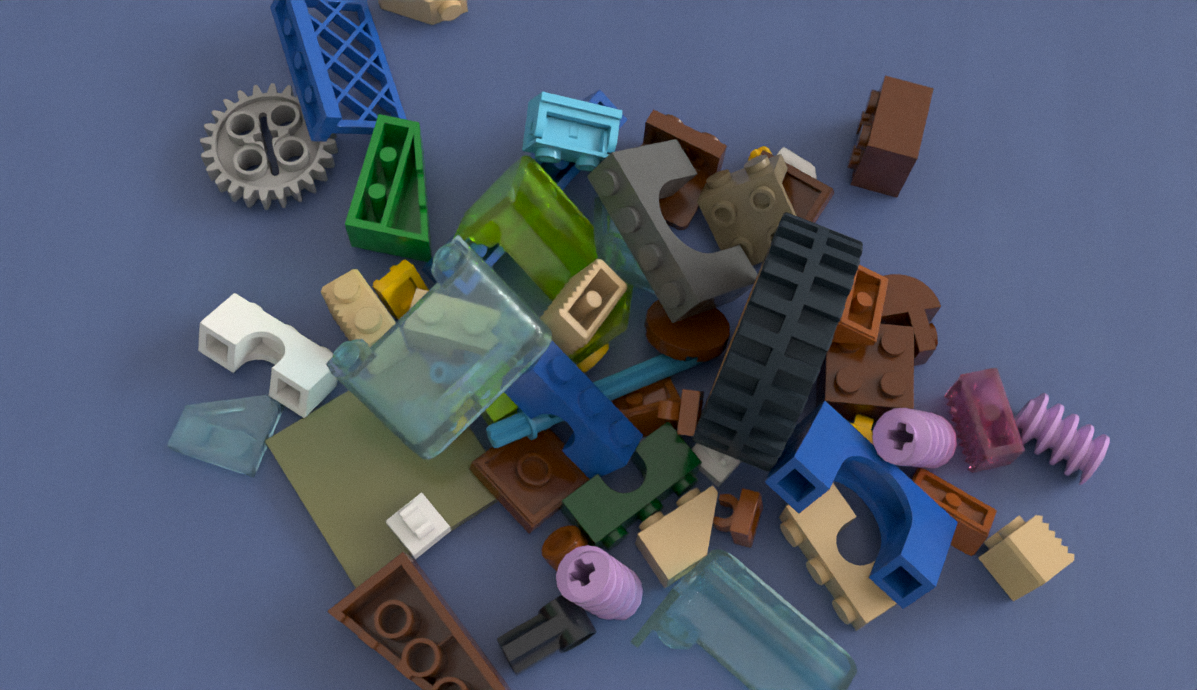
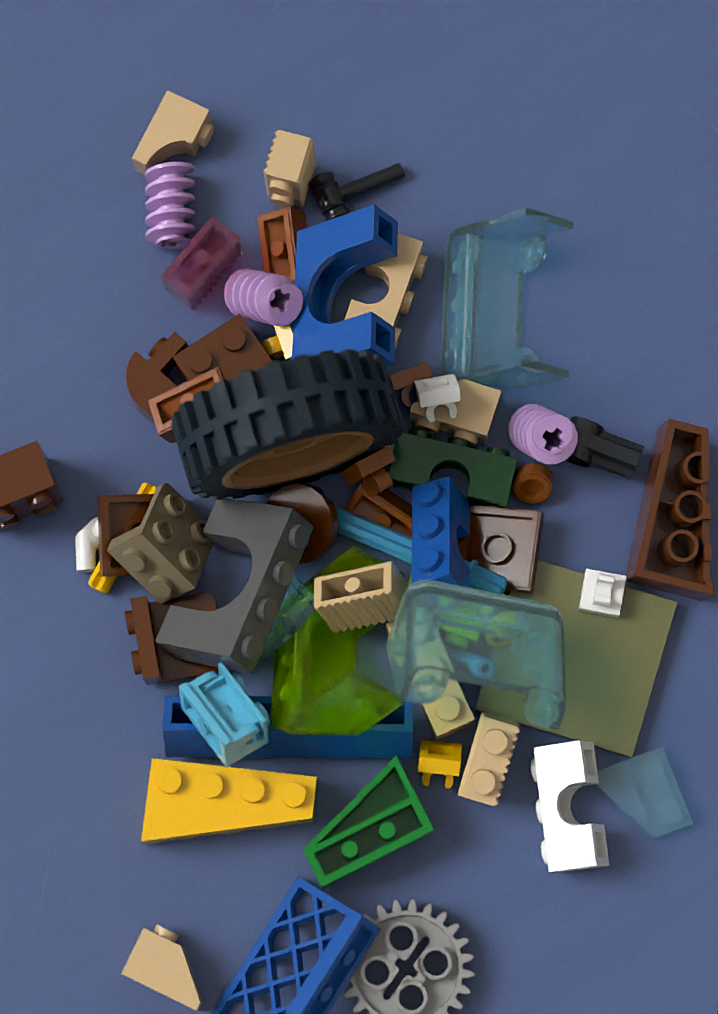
camera: 120 degrees left, 10 degrees up
(494, 125) = (211, 800): none -> yellow wedge
(709, 513) = (438, 391): none -> white tile
(969, 587) = (333, 198): none -> black piece
(1133, 490) = (174, 130): none -> tan arch

